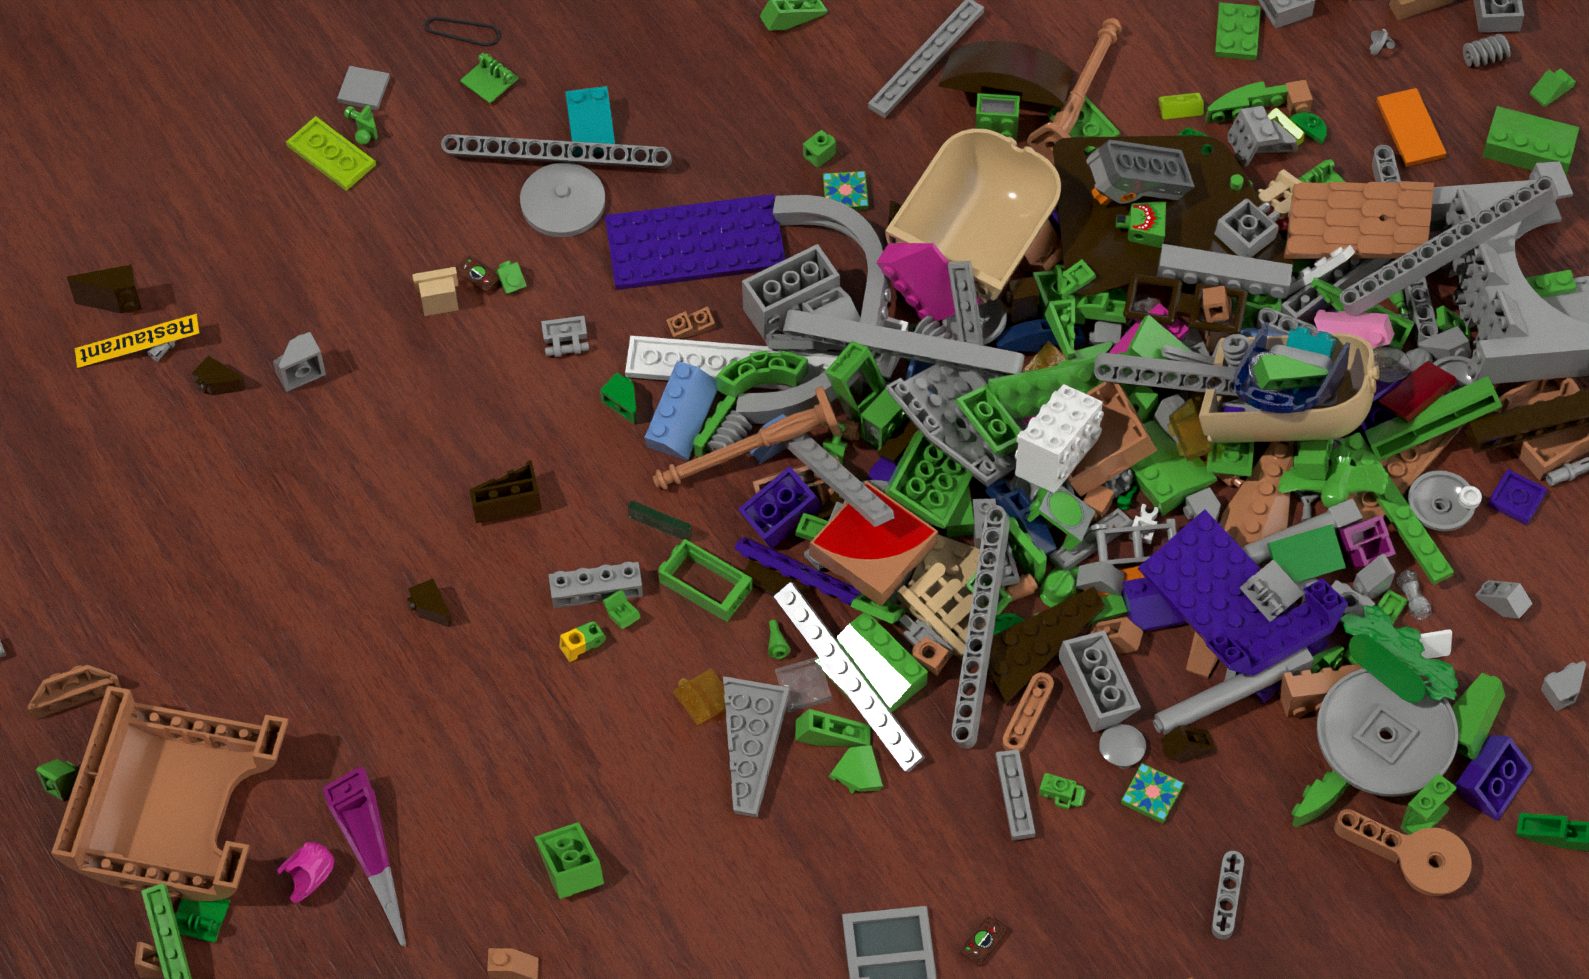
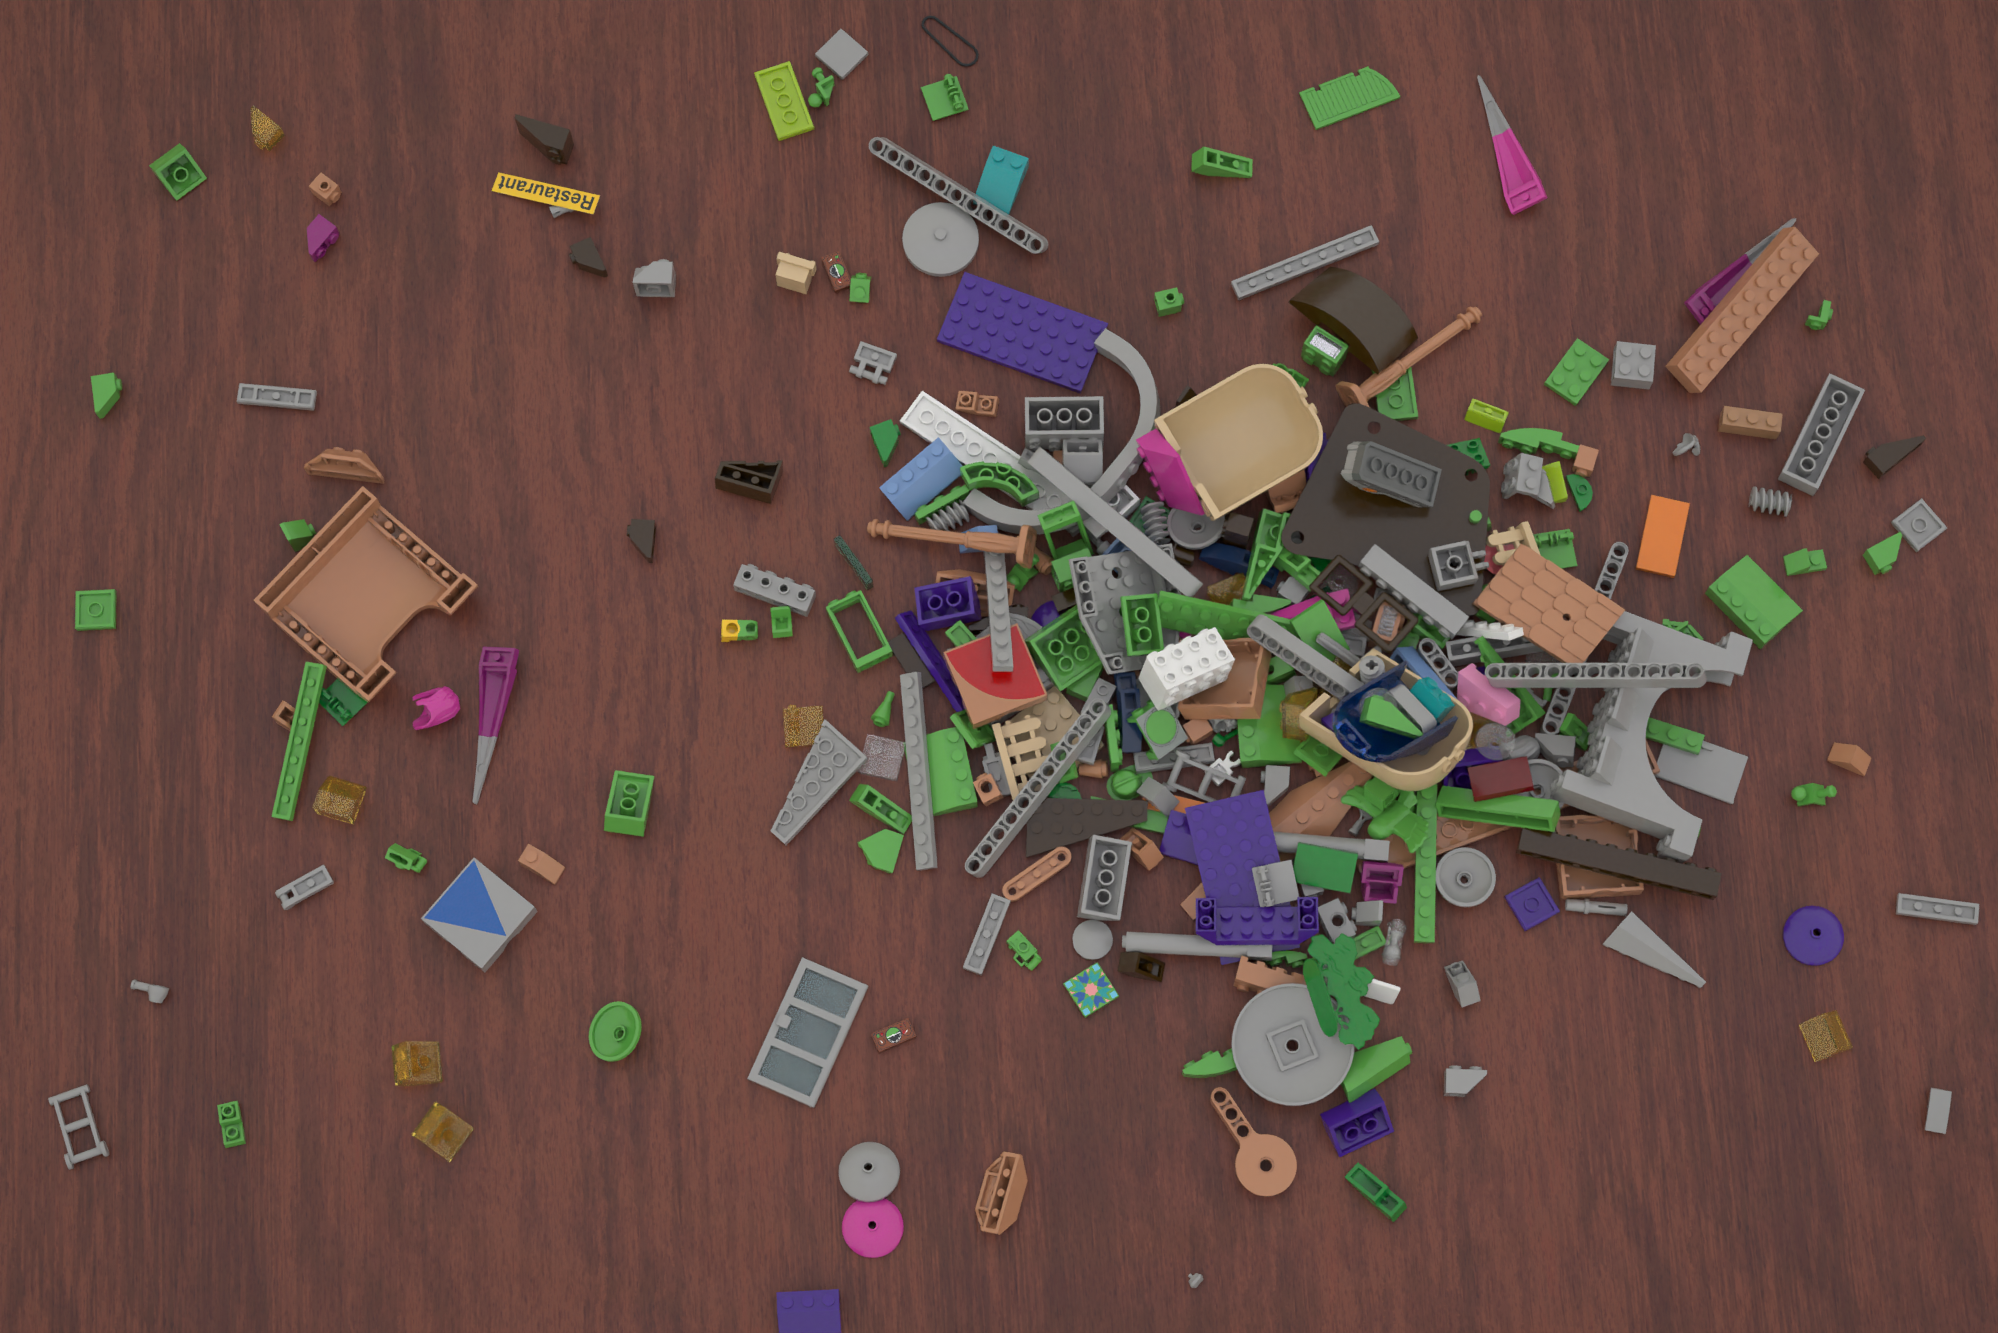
camera: 30 degrees right, 15 degrees up
(847, 188) = (1167, 350): tile -> none
(965, 302) = (1186, 512): light grey tile -> none
(1076, 278) = (1290, 534): bright green slope -> none
(1145, 223) = (1375, 516): bright green torso -> none
(1215, 304) = (1384, 619): nougat brick -> none
(1225, 894) = (1096, 1101): light grey beam -> none
(1428, 805) = (1286, 1121): bright green panel -> none
(1469, 497) = (1487, 887): white tile -> none

